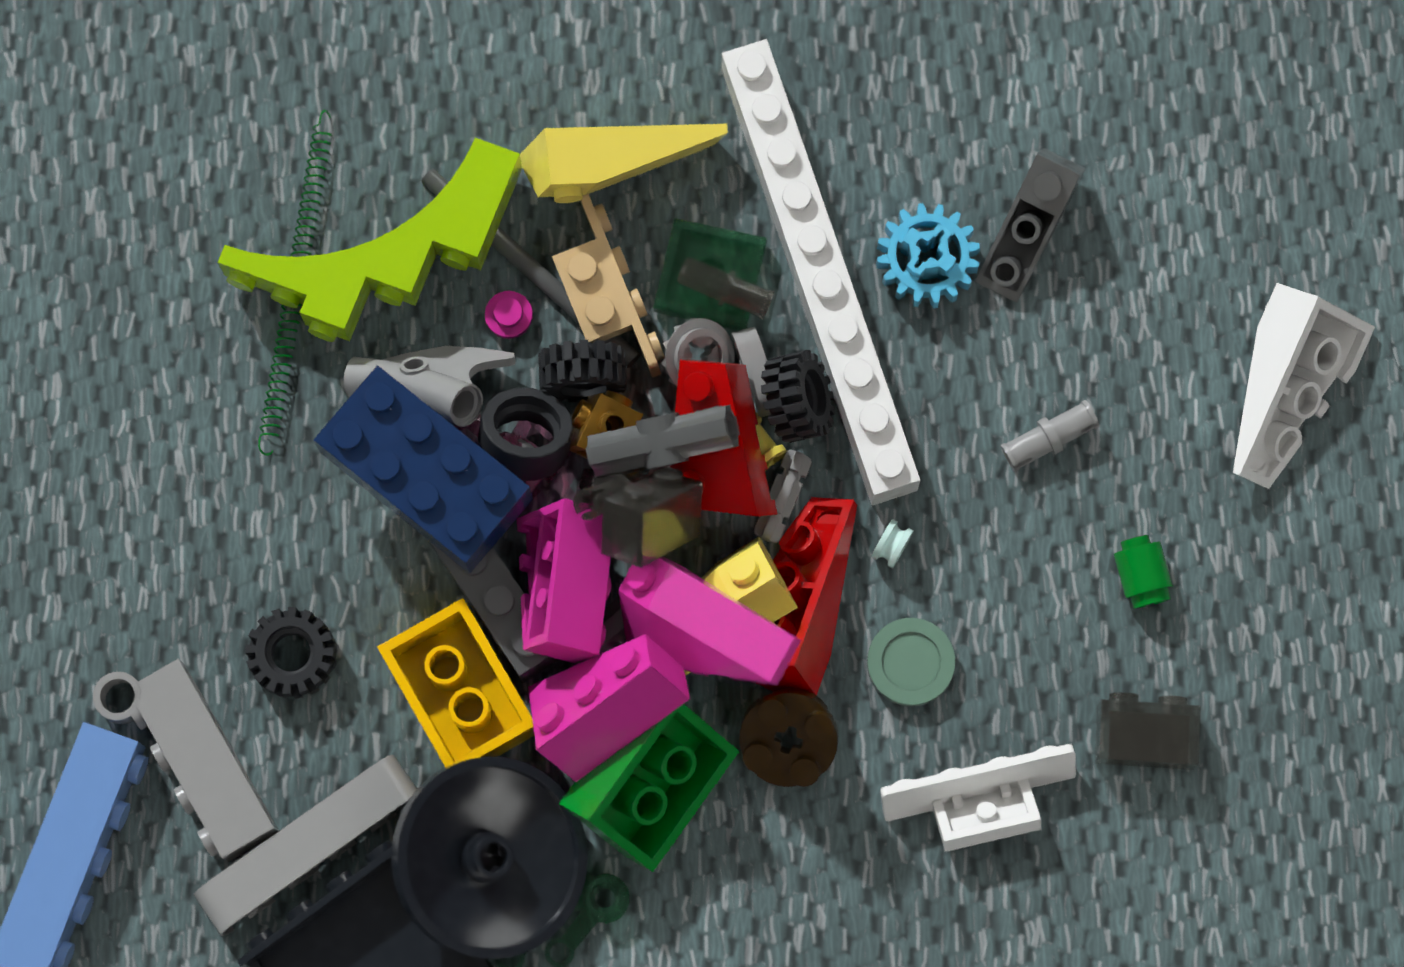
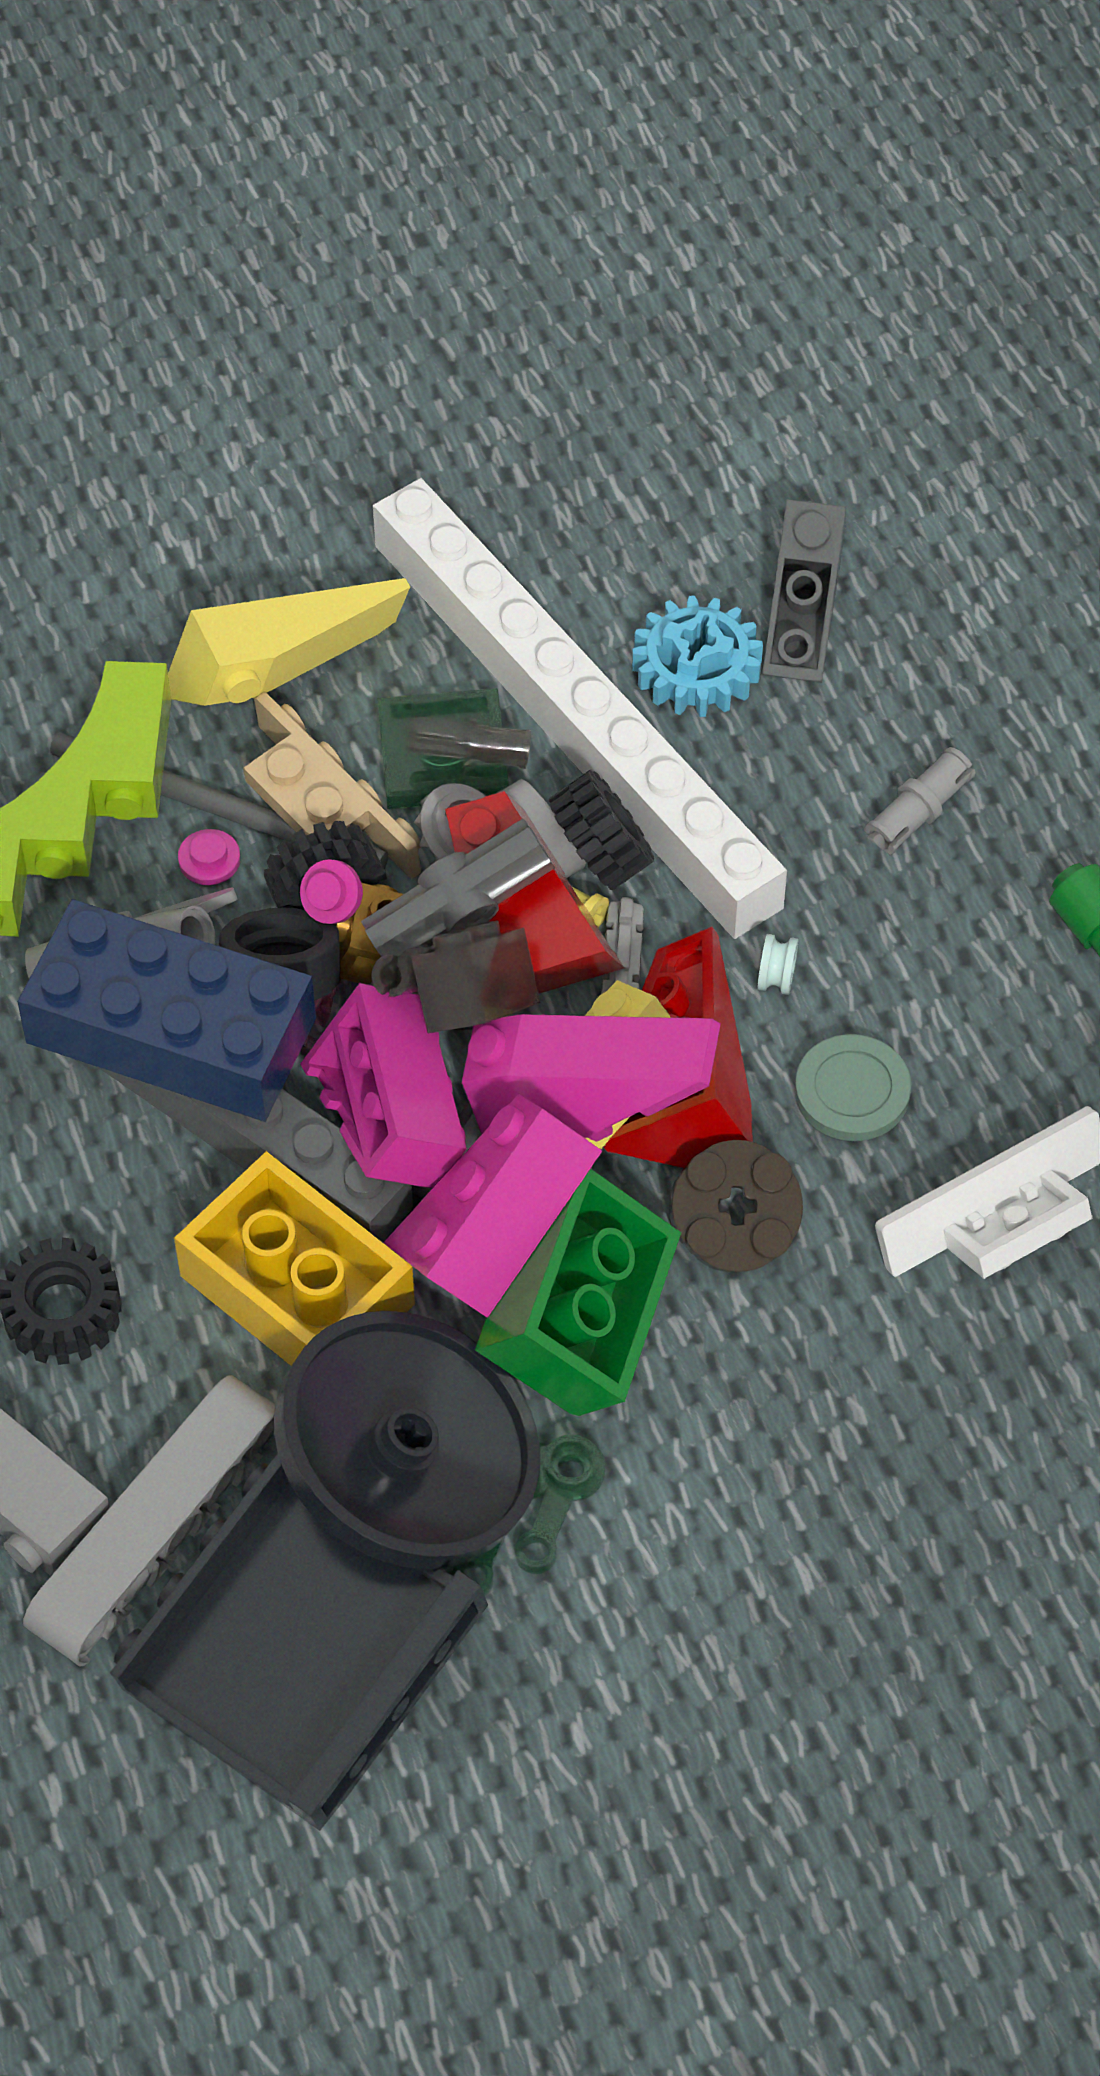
camera: 20 degrees left, 20 degrees down
(575, 401) = (331, 891): none -> dark pink plate

